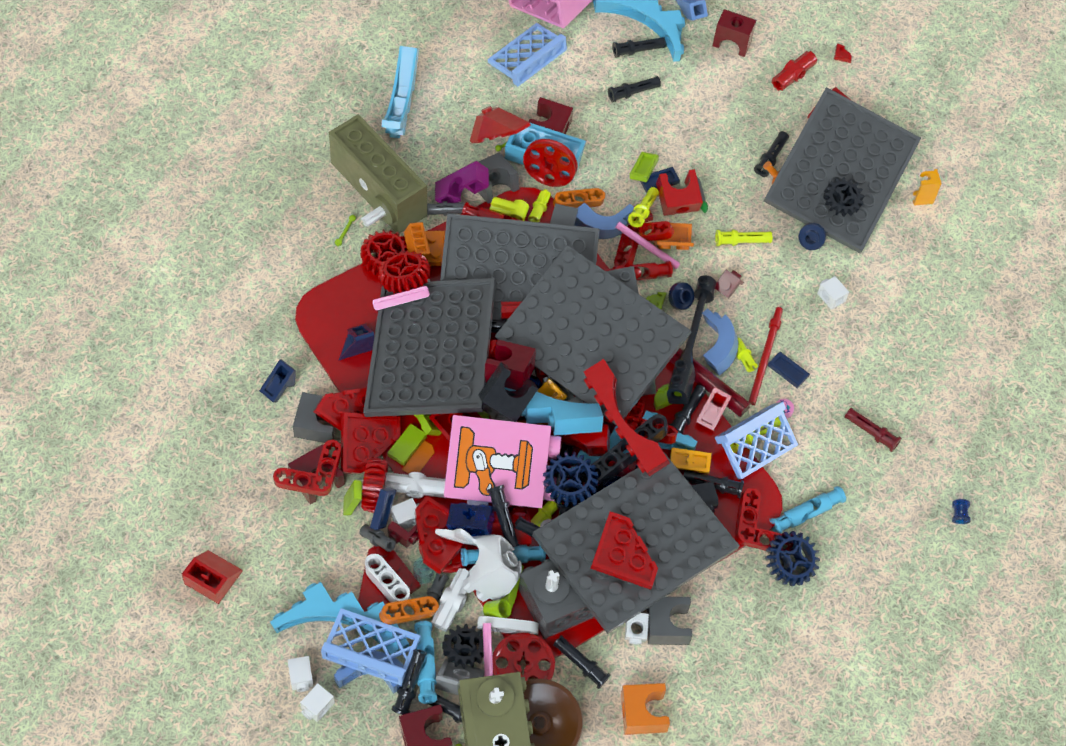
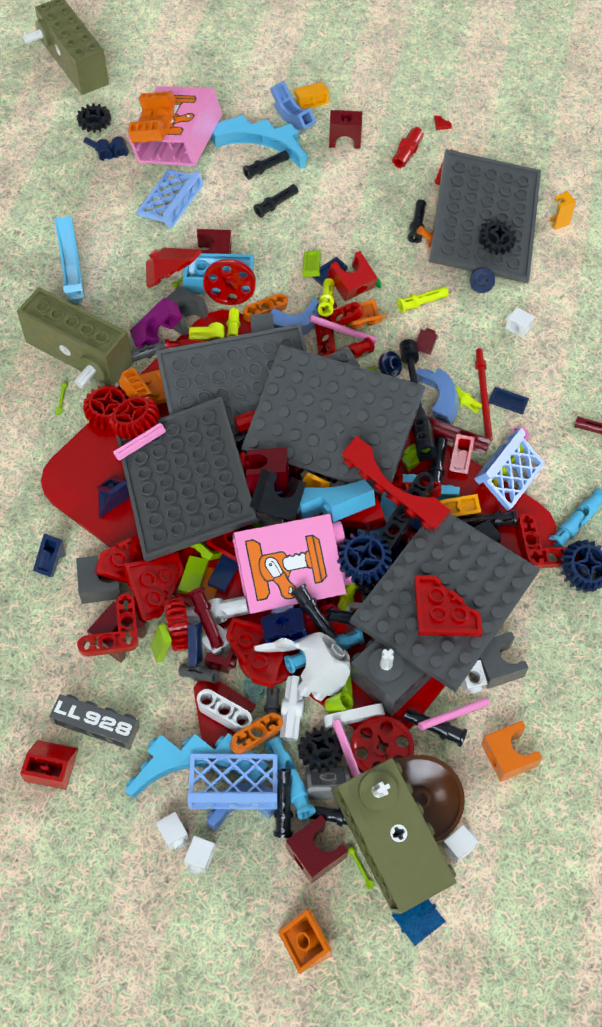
camera: 15 degrees left, 0 degrees up
(266, 550) = (94, 721): none -> dark grey brick
(402, 478) = (203, 609): none -> dark red pin
(435, 452) = (223, 574): none -> dark blue tile
(603, 655) = (453, 714): none -> bright pink bar

